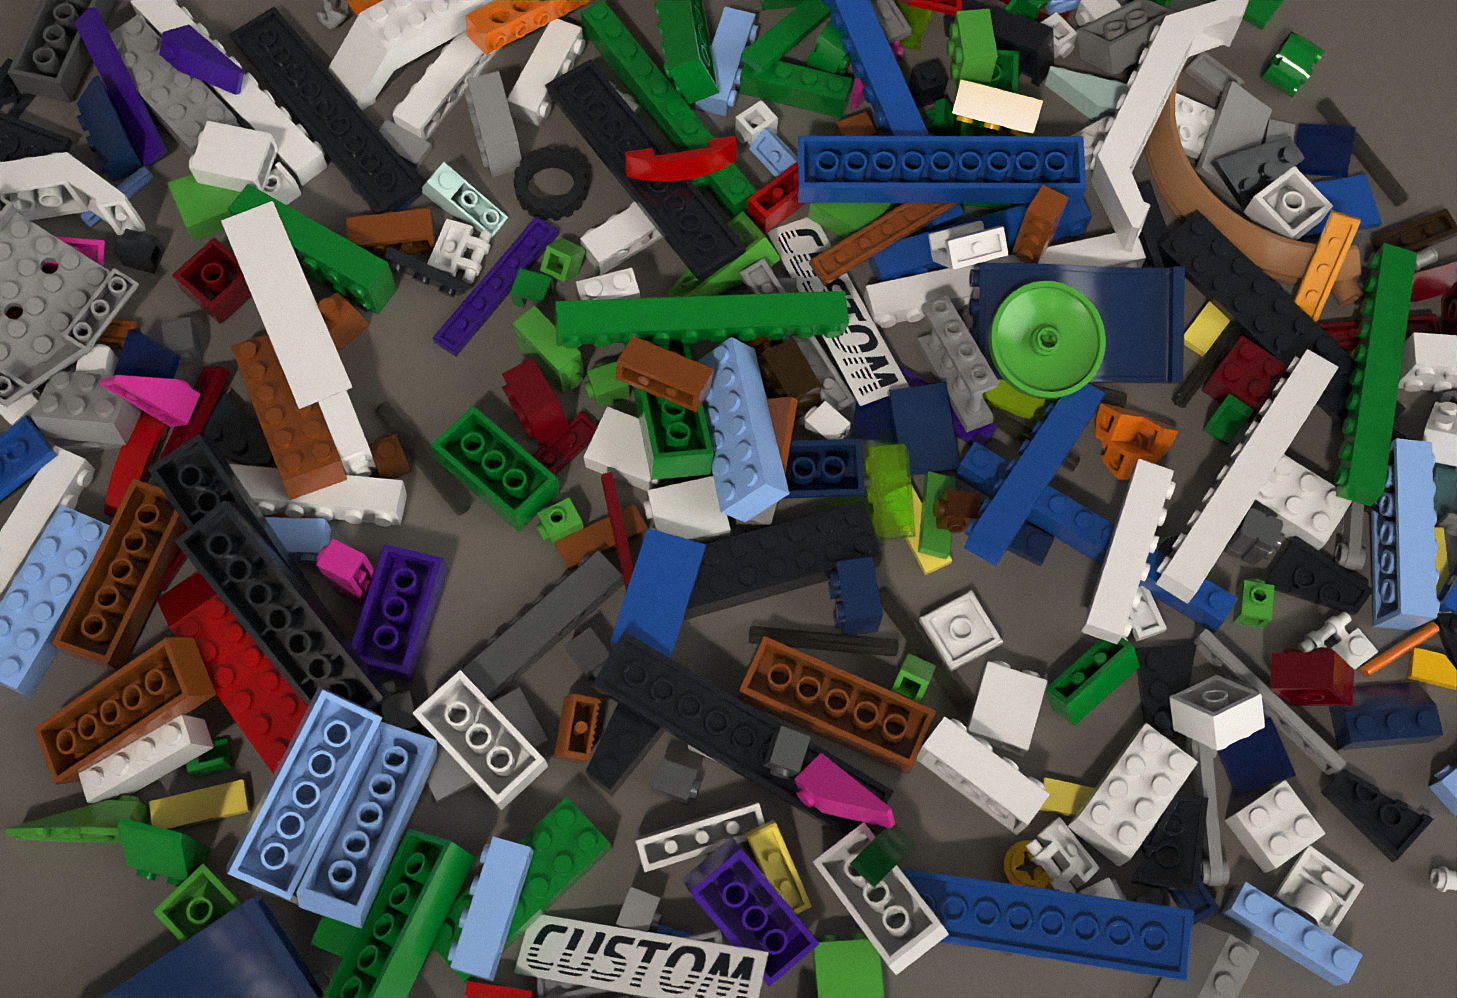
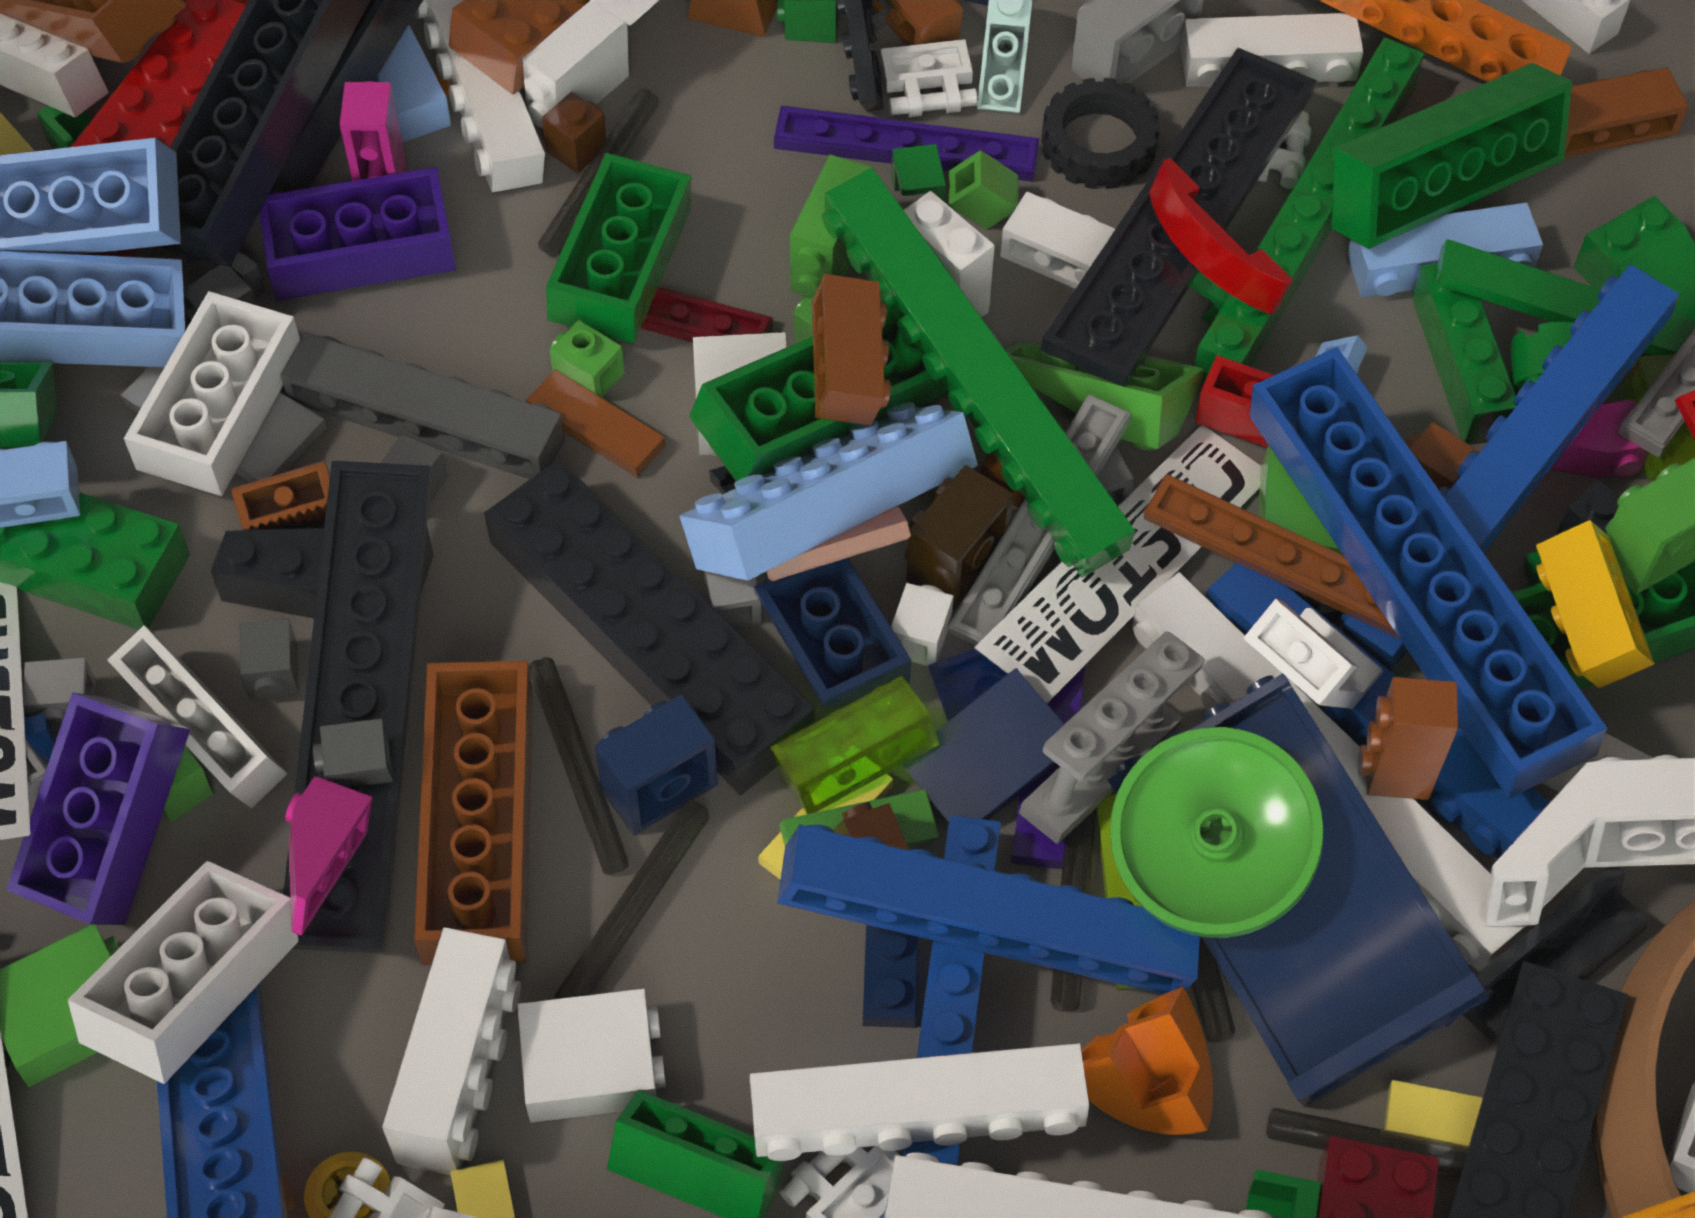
camera: 65 degrees right, 10 degrees down
(534, 402) = (740, 244): dark red brick -> none
(617, 527) = (608, 422): dark red tile -> none
(659, 590) = (523, 500): blue tile -> none
(688, 511) = (660, 490): white brick -> none
(753, 121) = (1370, 321): white brick -> none
(777, 864) = (190, 830): light yellow tile -> none
(883, 854) = (256, 939): dark green slope -> none
(913, 678) = (566, 899): bright green brick -> none
(960, 631) = (686, 944): white plate -> none

